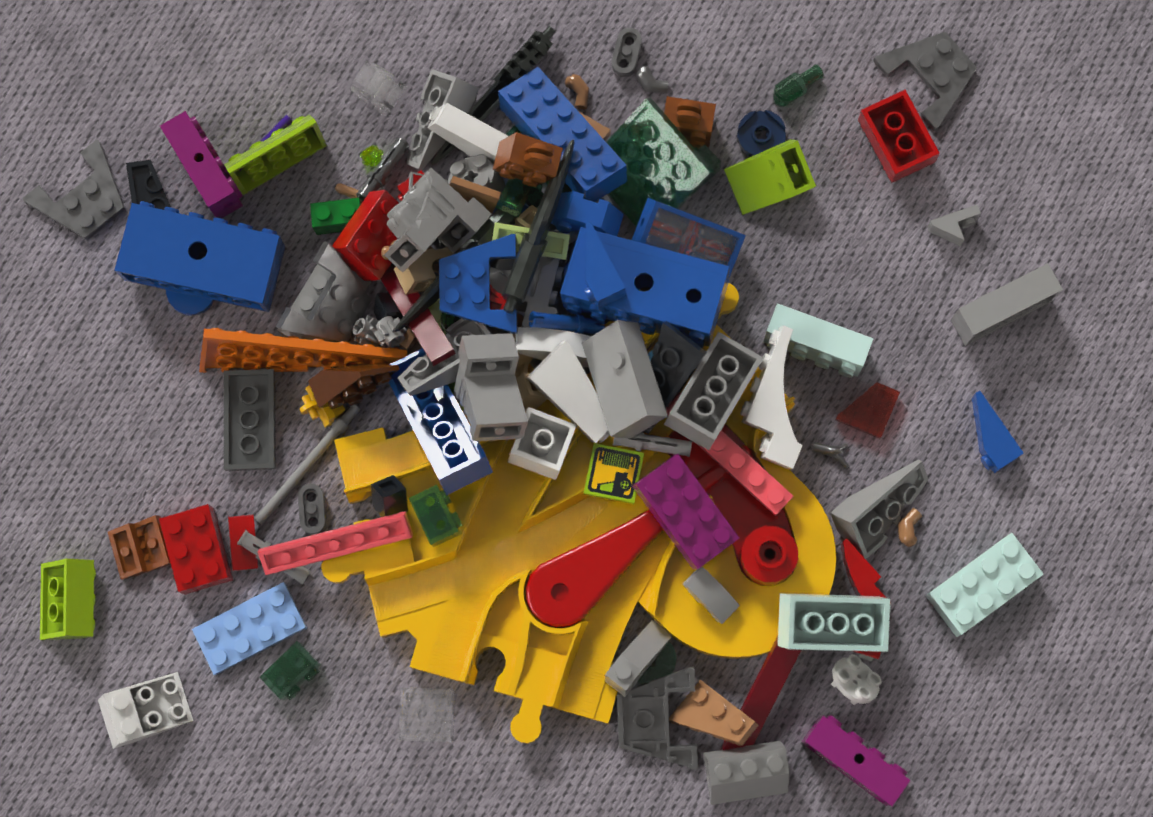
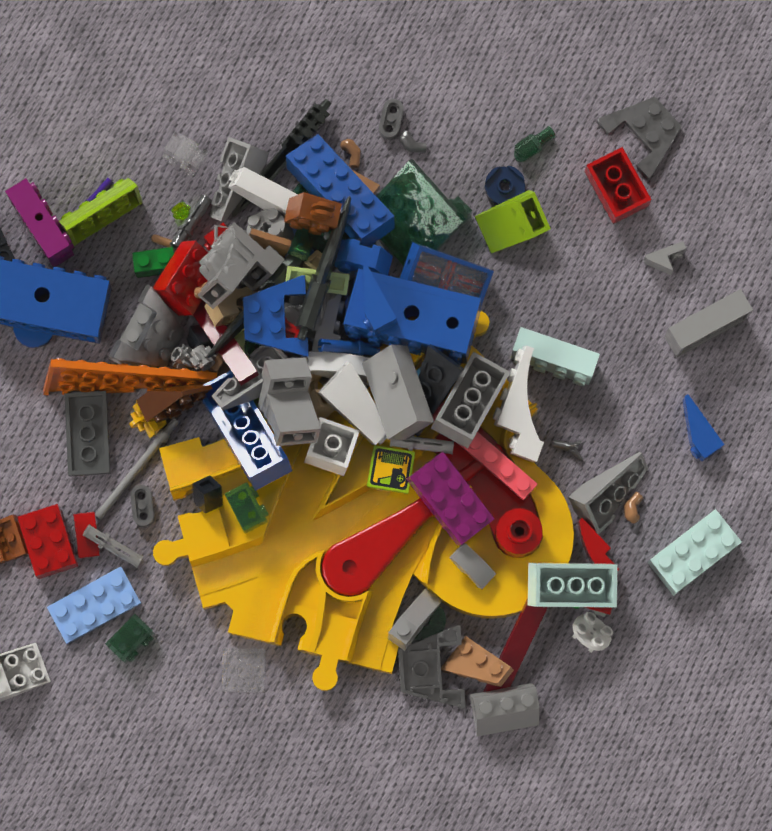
camera: 10 degrees left, 0 degrees up
(335, 543) = (164, 532): coral tile -> none
(692, 119) = (447, 176): dark orange brick -> none
(870, 773) = (605, 707): magenta brick -> none
(871, 410) = (599, 412): clear red wing -> none

